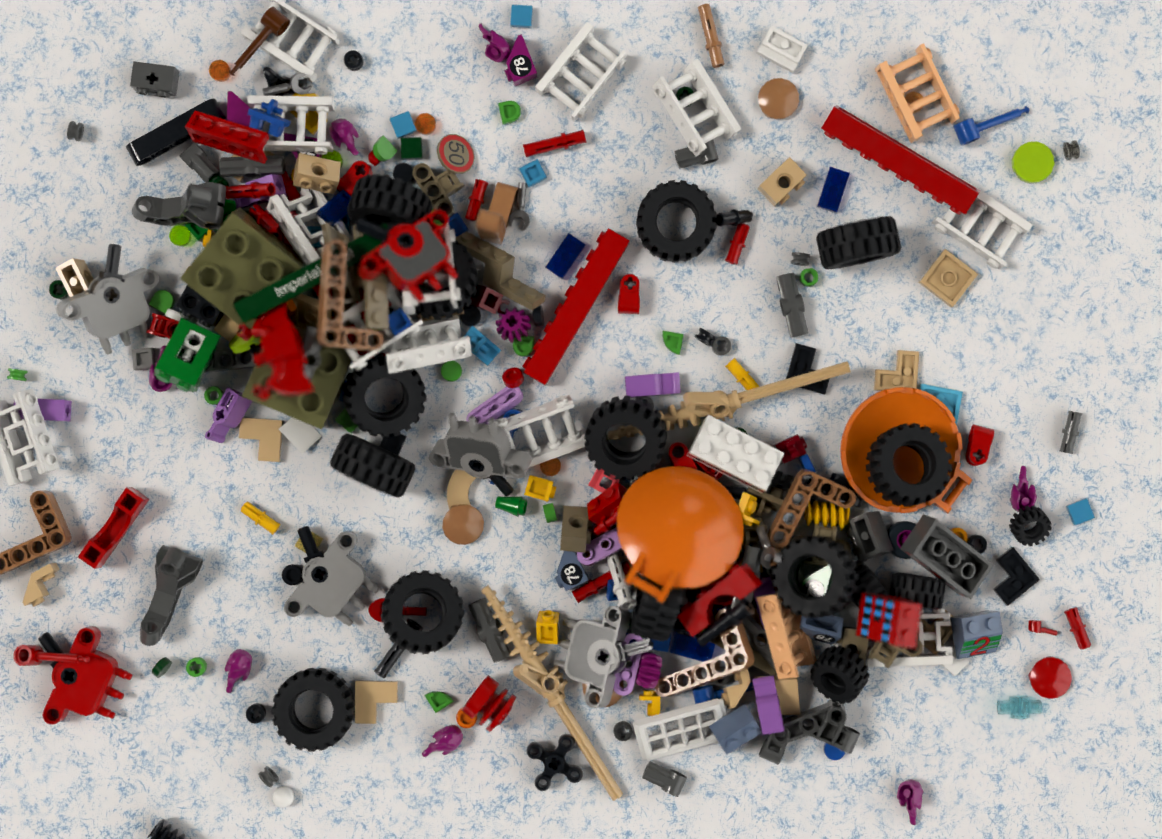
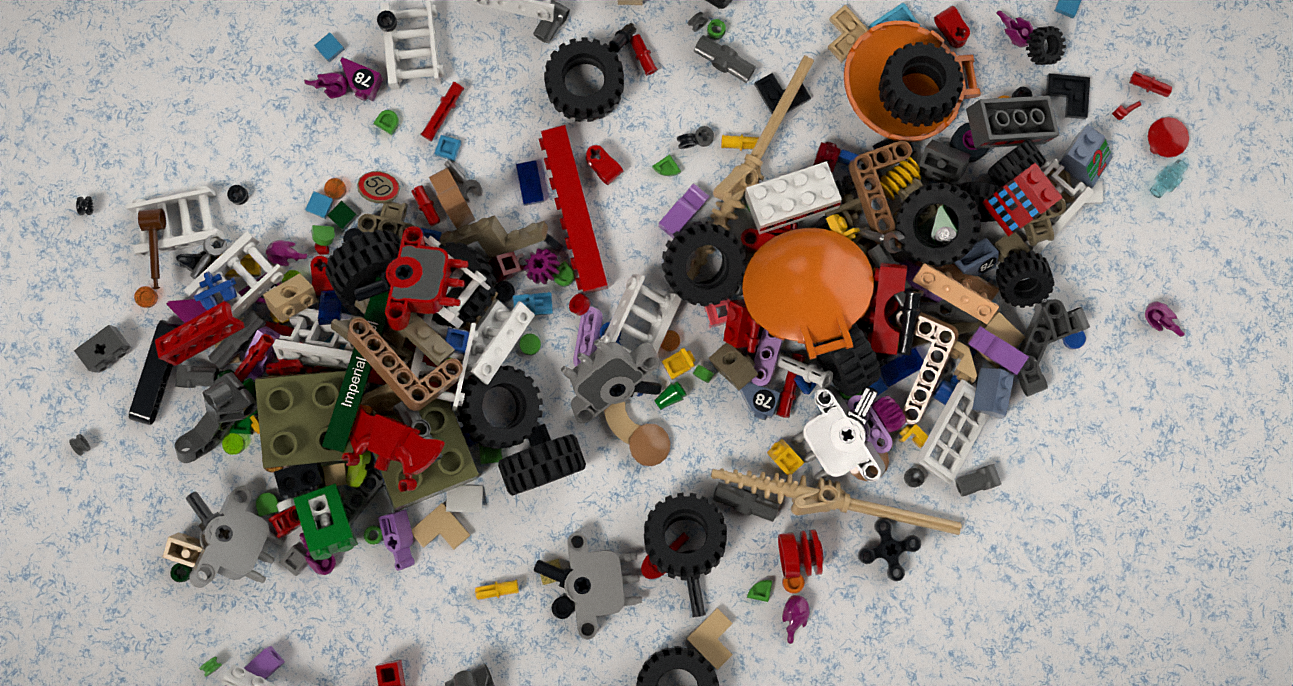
camera: 45 degrees left, 5 degrees down
(572, 38) = (390, 27): none -> black bush

